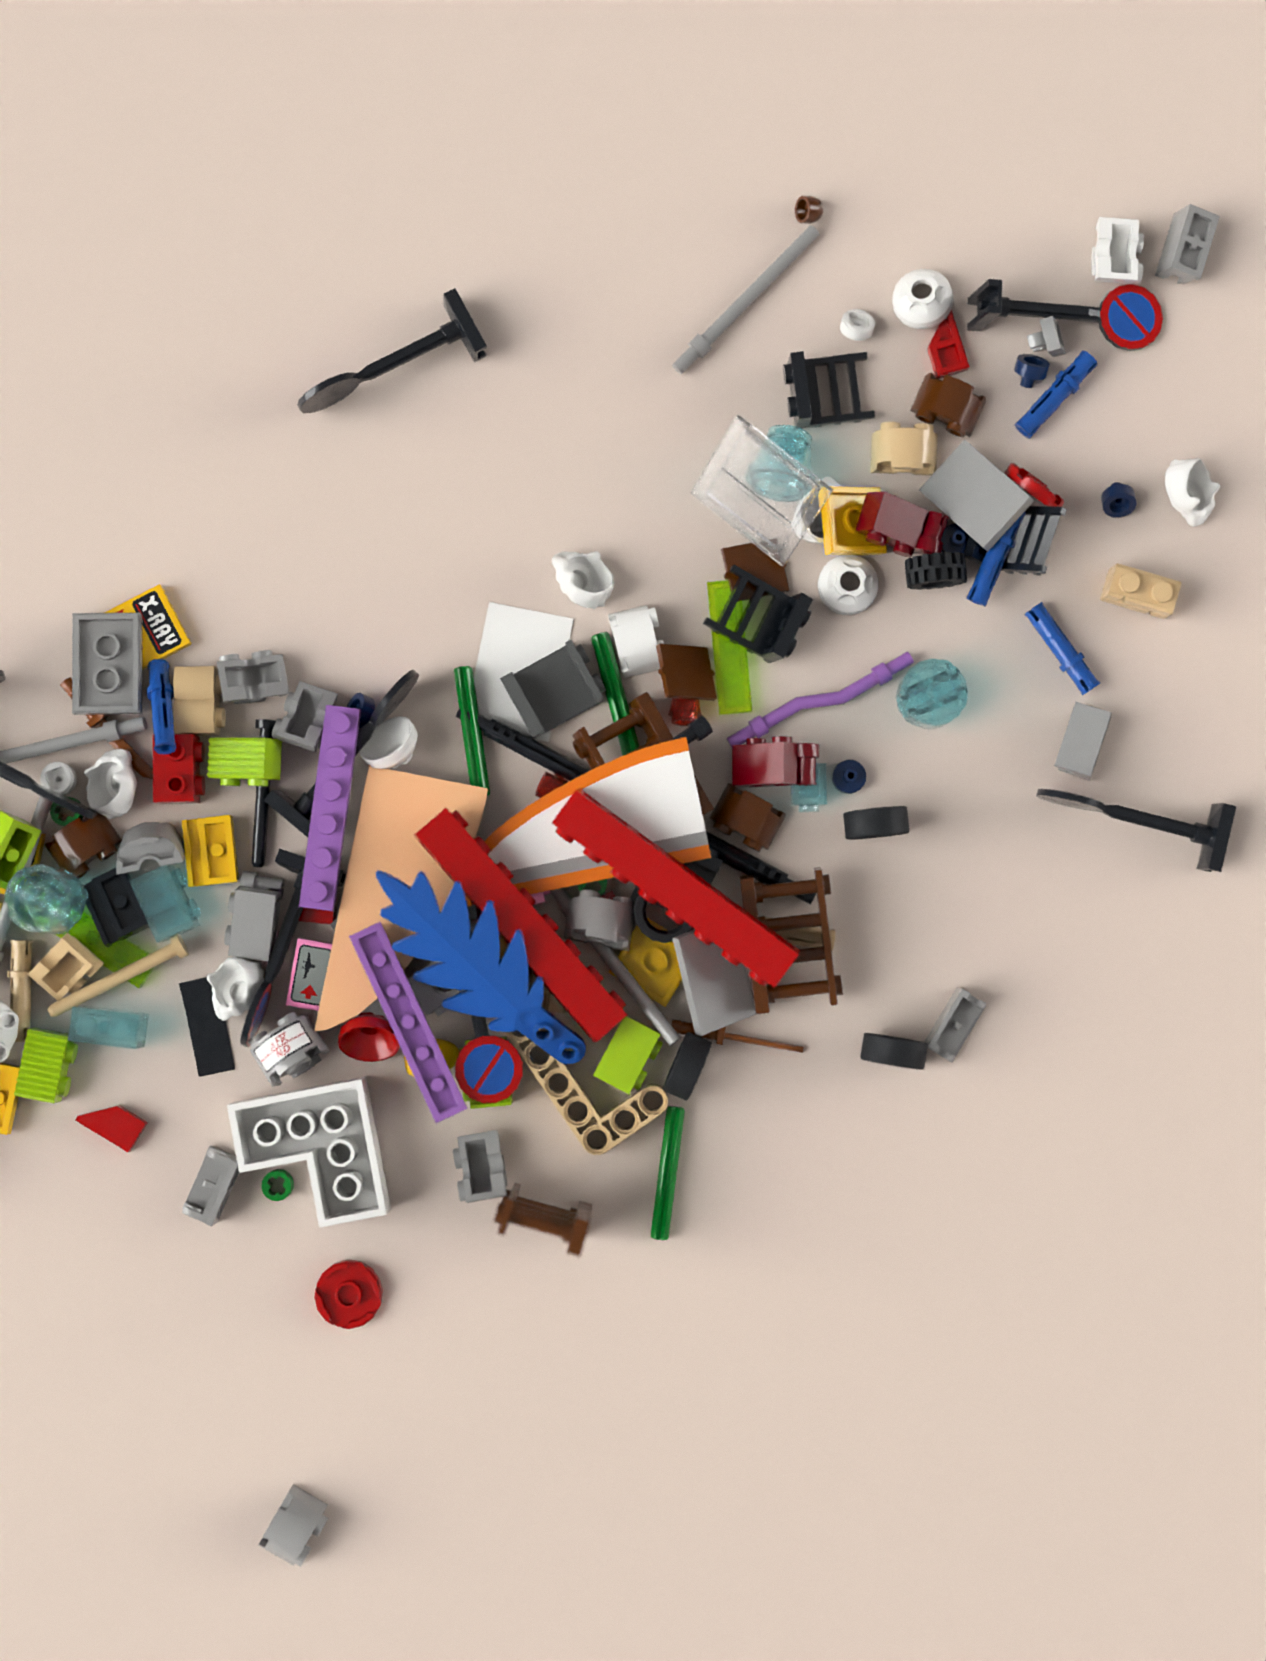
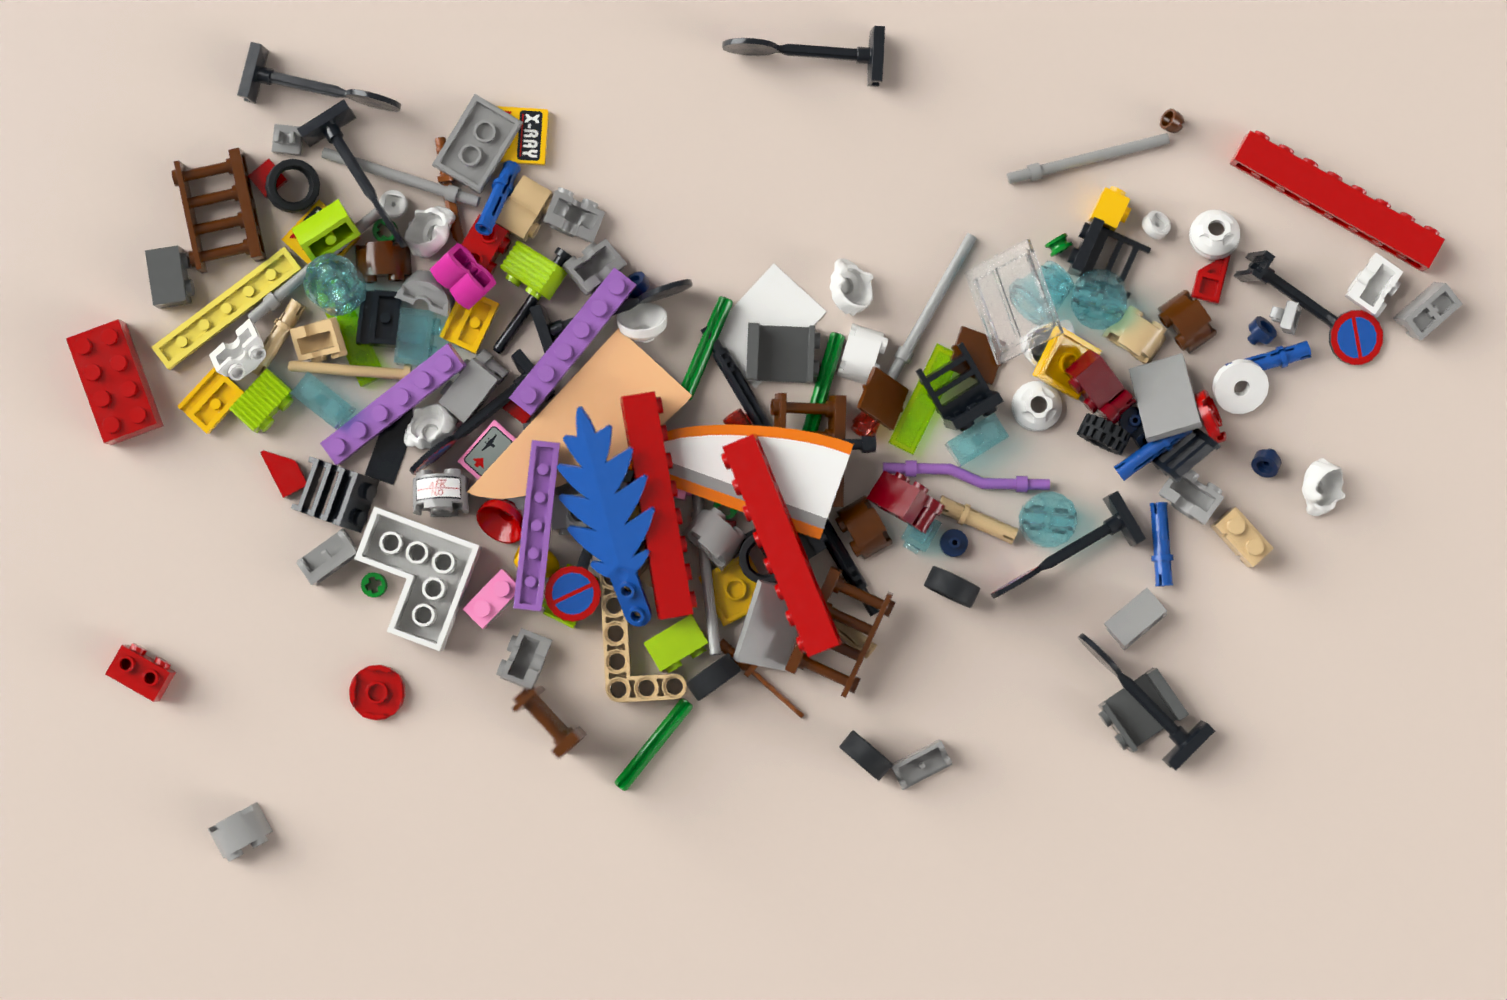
camera: 30 degrees right, 0 degrees up
(89, 1425) = (141, 672): none -> red brick
(173, 809) = (462, 276): none -> dark pink brick
(183, 986) = (393, 404): none -> medium lavender plate
(197, 1115) = (349, 498): none -> black plate
(408, 1126) = (492, 599): none -> bright pink brick
(680, 612) = (904, 354): none -> light grey bar
(770, 405) = (1058, 245): none -> green bush
(801, 333) = (1111, 207): none -> yellow brick
(809, 656) = (976, 440): none -> clear light blue brick
(846, 435) = (1099, 299): none -> clear light blue brick
(865, 737) = (978, 520): none -> tan pin
(1006, 649) = (1121, 520): none -> black piece
(1027, 188) = (1337, 201): none -> red brick
(1061, 443) = (1250, 397): none -> white tile
(1066, 580) = (1192, 496): none -> light grey cylinder
(1140, 846) = (1131, 720): none -> dark grey panel

